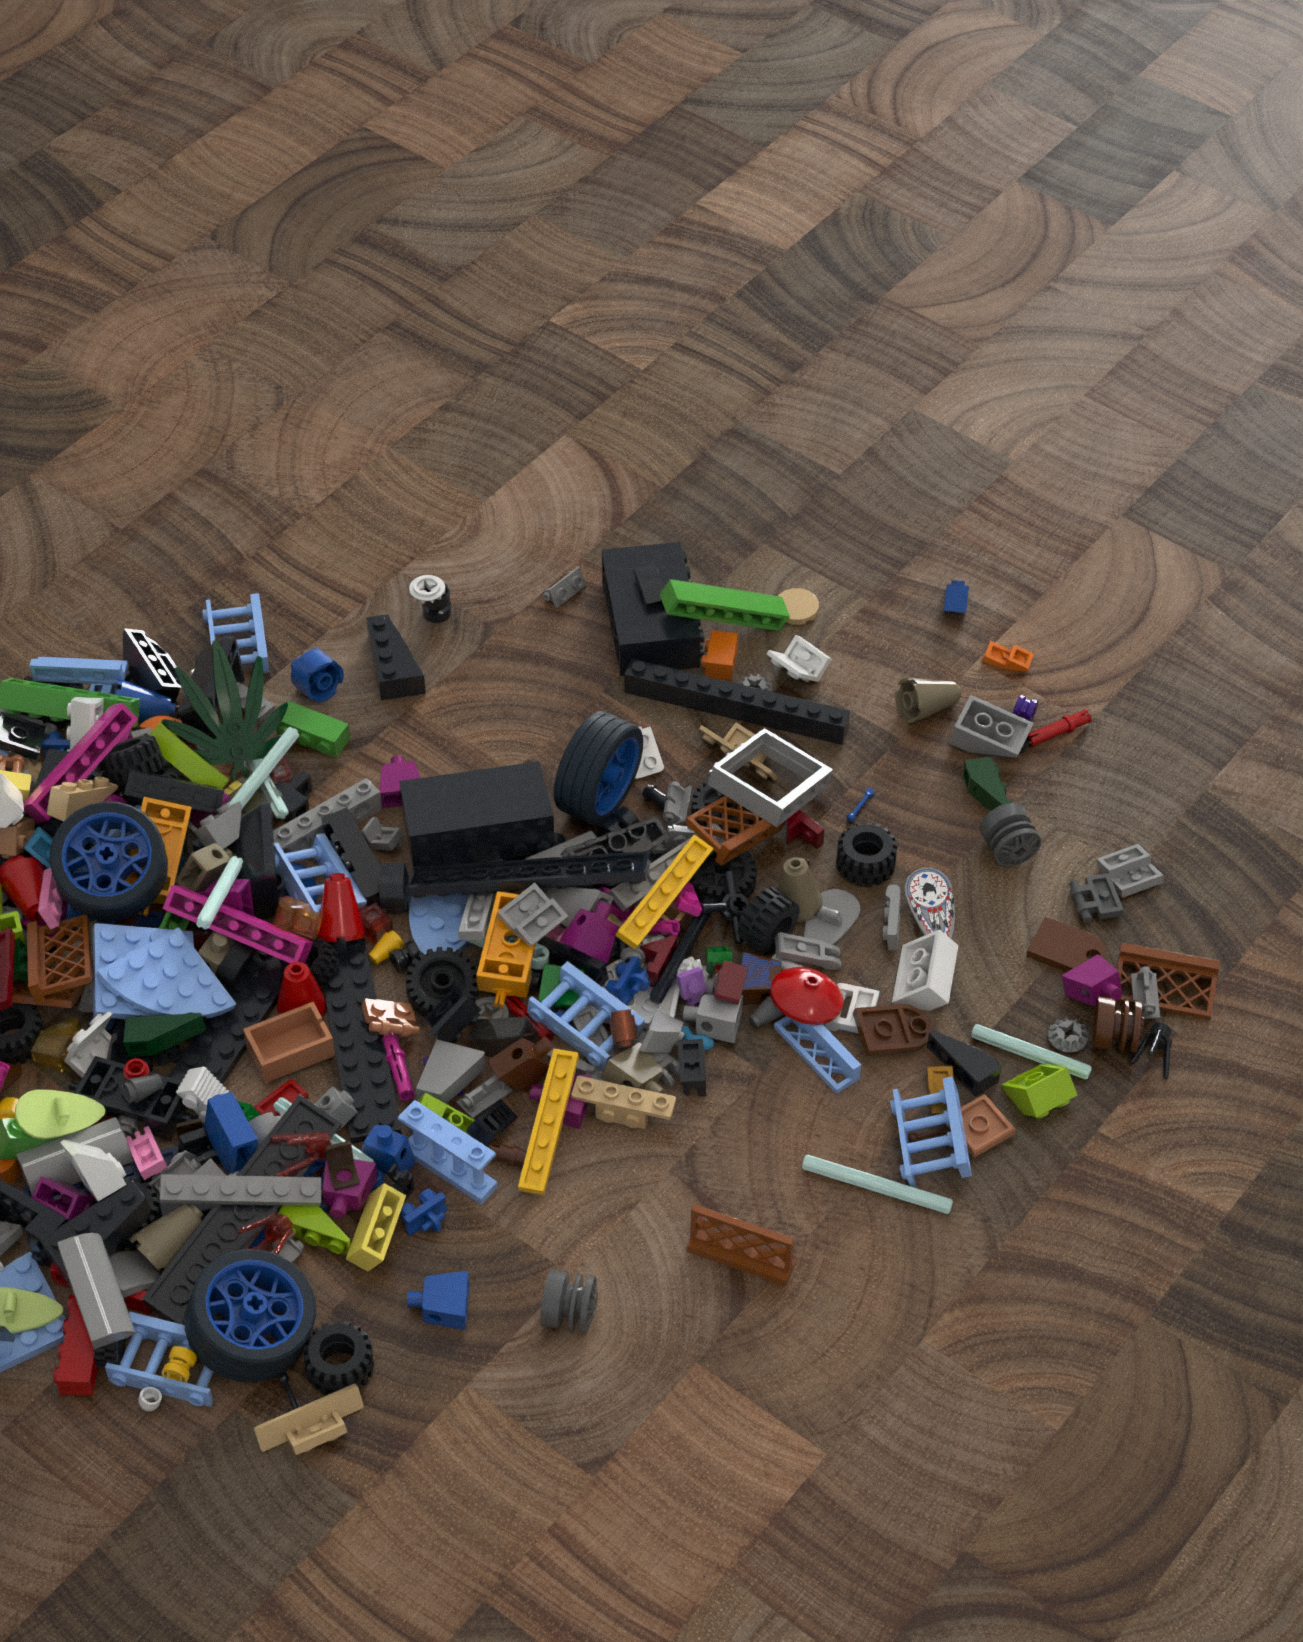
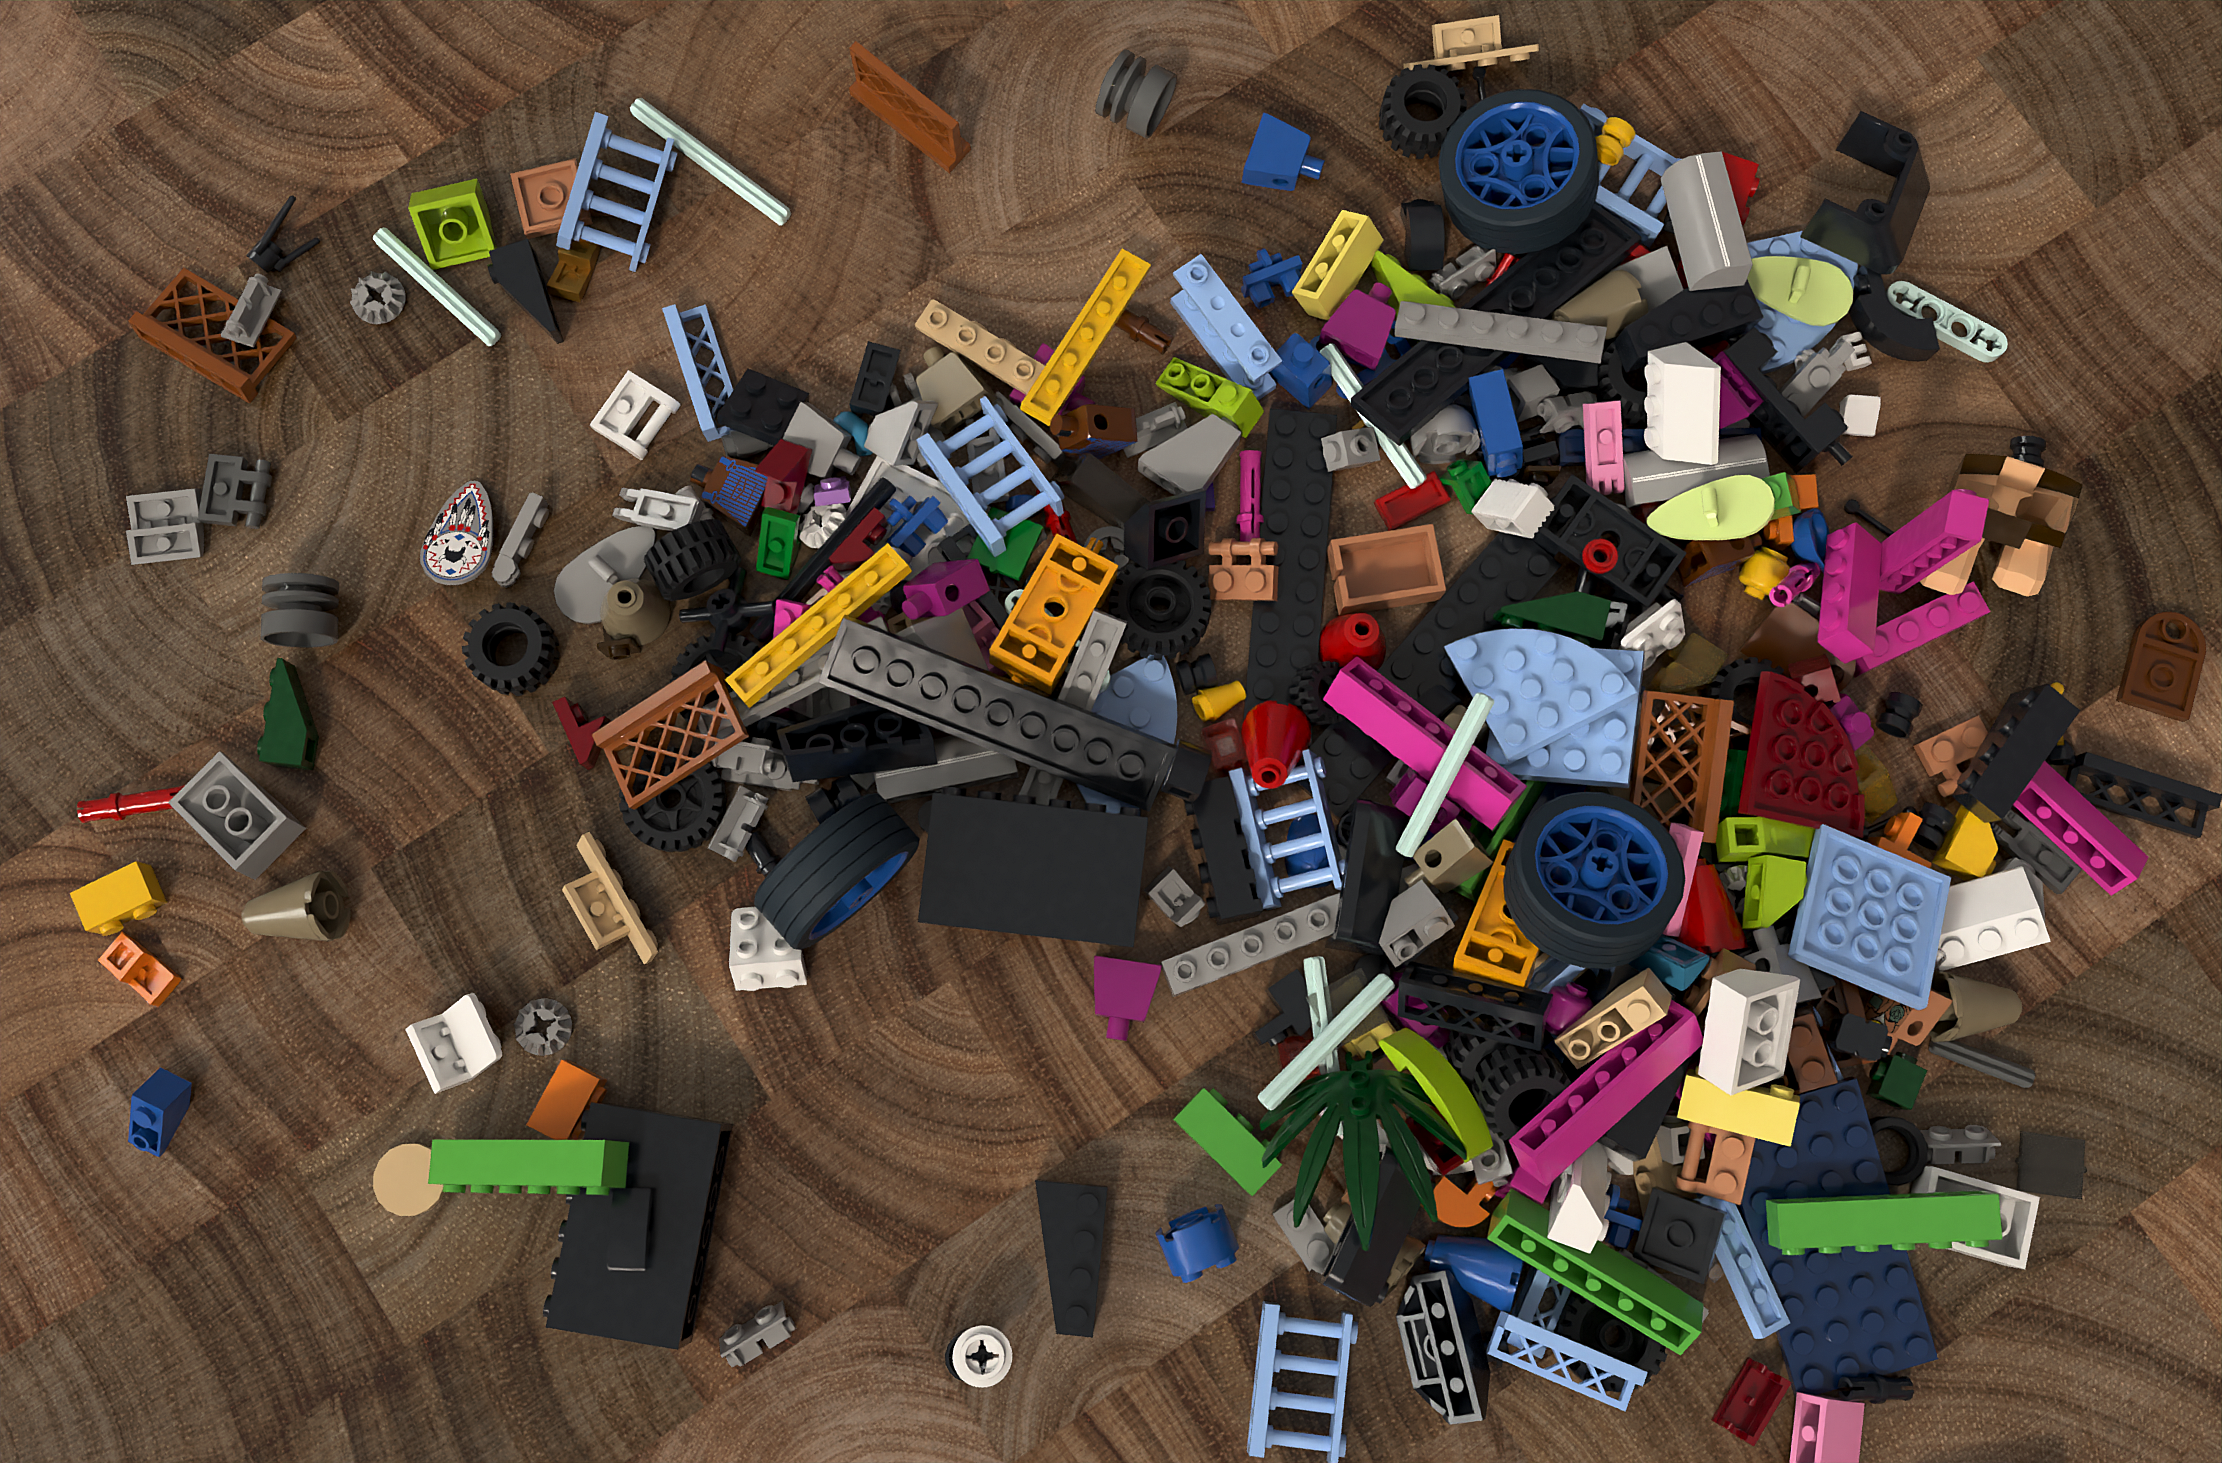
camera: 165 degrees left, 30 degrees up
(141, 1087) = (1598, 524): dark grey cone -> none
(147, 1397) = (1649, 128): white hinge -> none
(277, 1228) = (1461, 287): clear red plant -> none
(296, 917) = (1348, 740): clear orange brick -> none
(314, 1142) = (1391, 365): clear red plant -> none
(318, 1271) = (1423, 235): none -> black brick
(340, 1158) = (1367, 331): dark brown bracket -> none
(401, 1182) = (1293, 317): black plate -> none
(491, 1124) = (1168, 376): black slope -> none
(532, 915) = (1016, 622): light grey slope -> none
(623, 1028) = (949, 428): copper brick -> none
(737, 701) = (581, 996): black brick -> none
(763, 1032) = (761, 407): none -> black plate
(806, 995) = (704, 439): red dish -> none
(814, 772) = (576, 741): light grey window -> none
(869, 793) = (459, 776): blue hinge -> none
(890, 1029) = (600, 362): reddish brown tile -> none
(926, 972) = (517, 437): white slope -> none
(1025, 708) = (163, 852): dark purple wheel -> none
(1039, 680) = (118, 898): none -> yellow brick
(1063, 945) = (314, 430): reddish brown tile -> none
(1092, 980) = (305, 344): magenta torso -> none
(1117, 1024) = (311, 267): reddish brown wheel -> none

